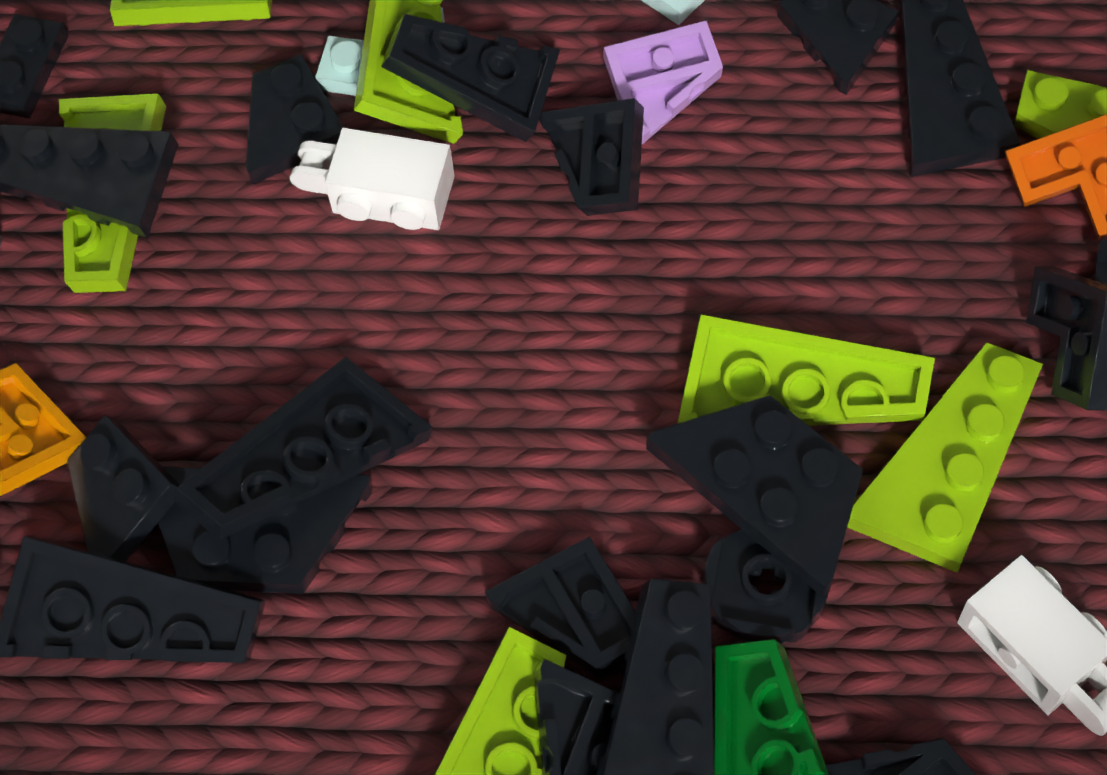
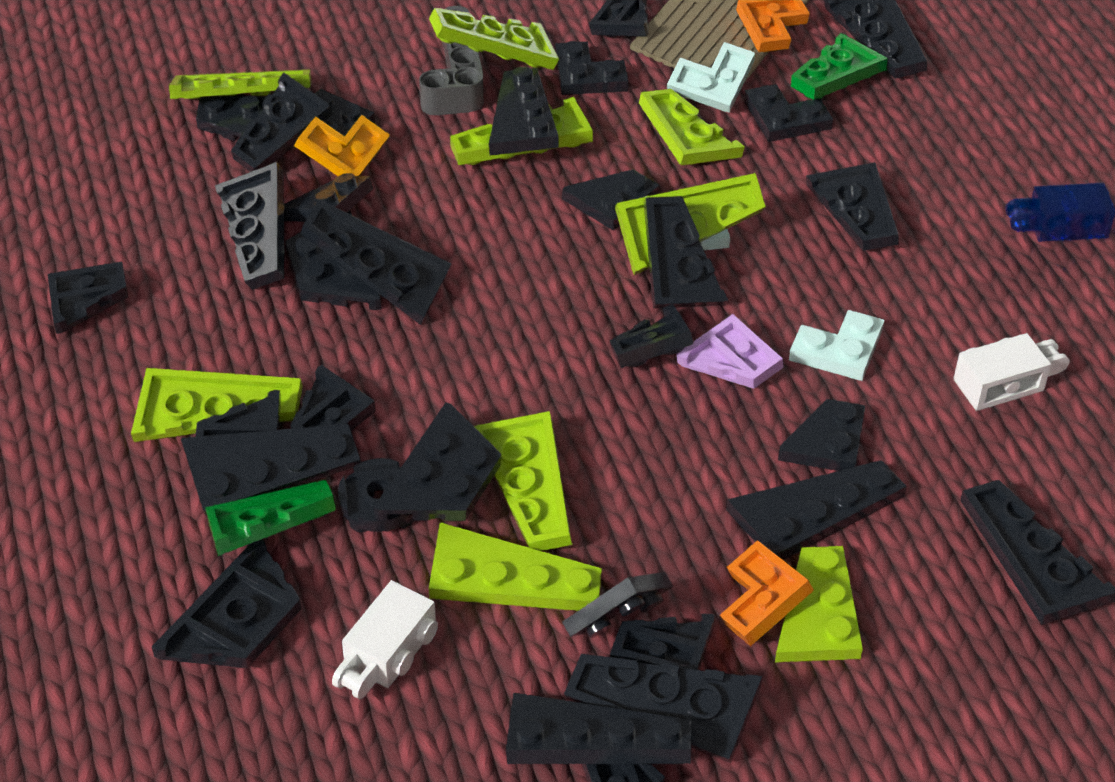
camera: 65 degrees right, 15 degrees down
(379, 177) = (584, 246): white brick -> none

